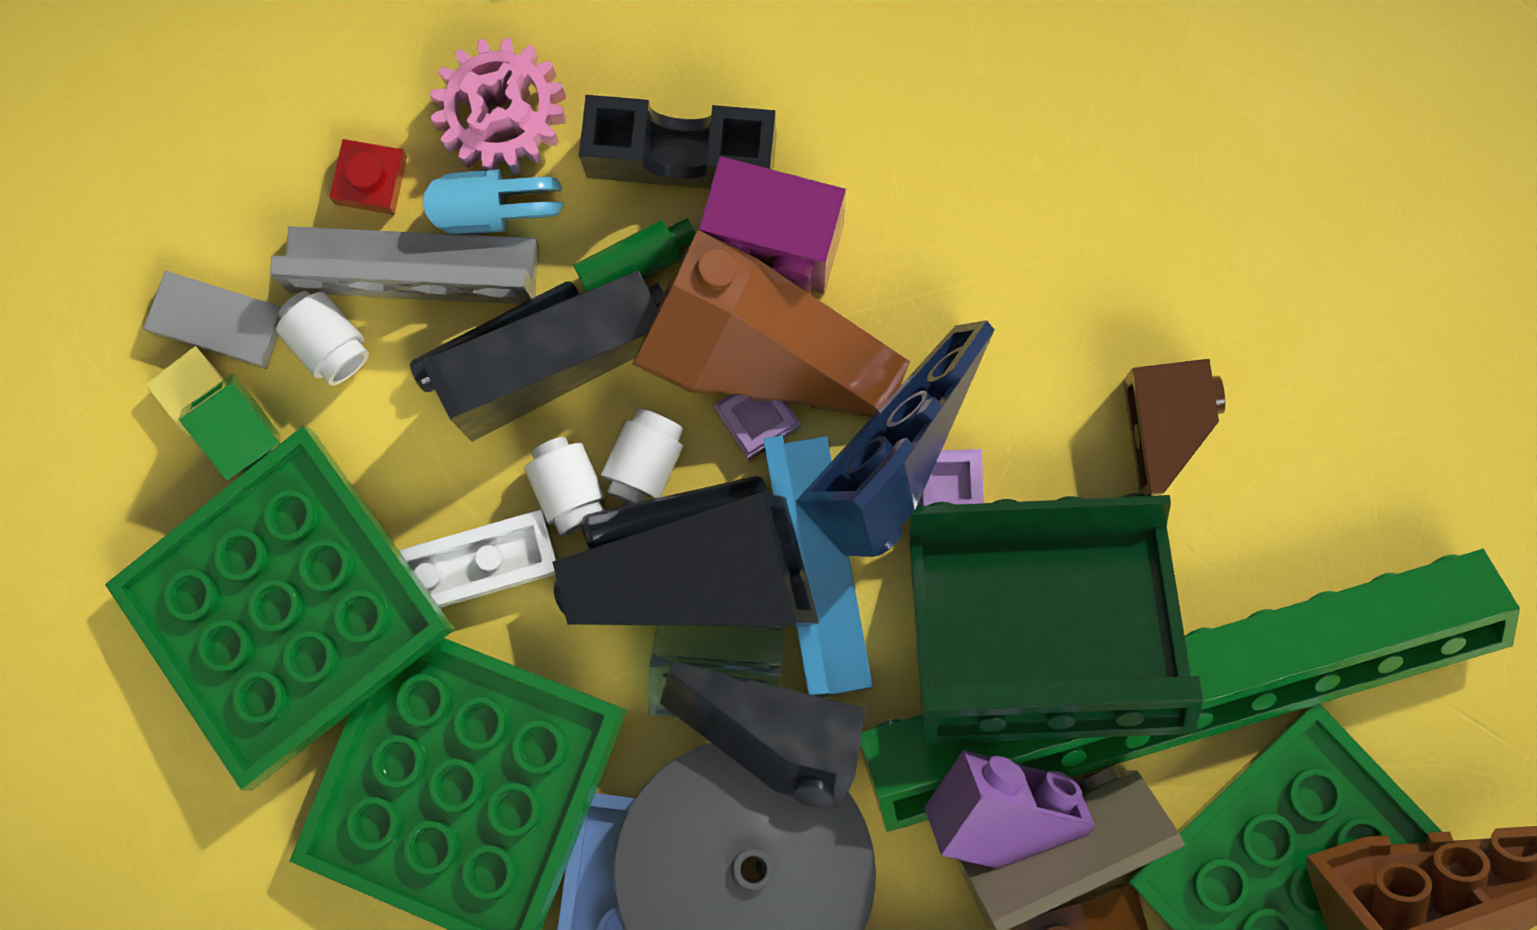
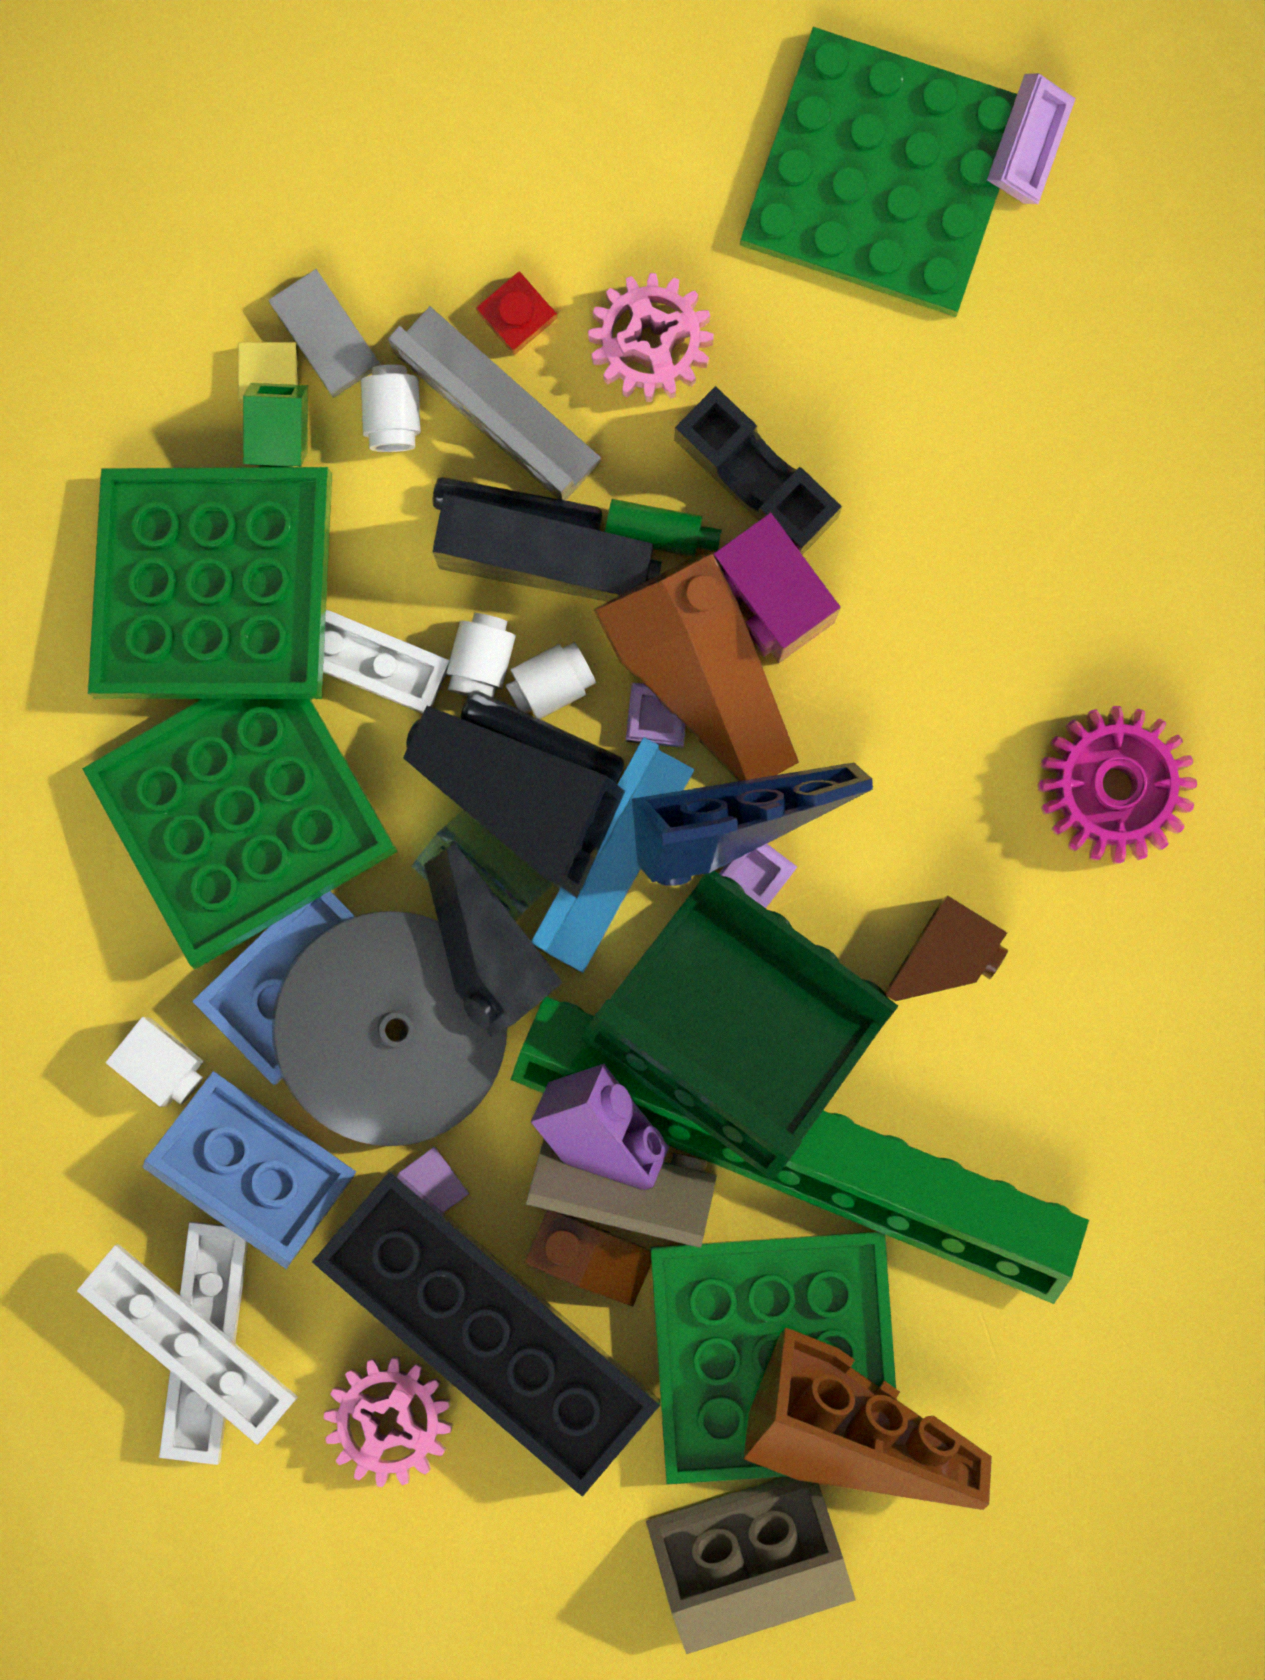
camera: 35 degrees right, 5 degrees up
(477, 201) = (579, 398): medium azure arm -> none
(1198, 130) = (1152, 779): none -> dark pink gear

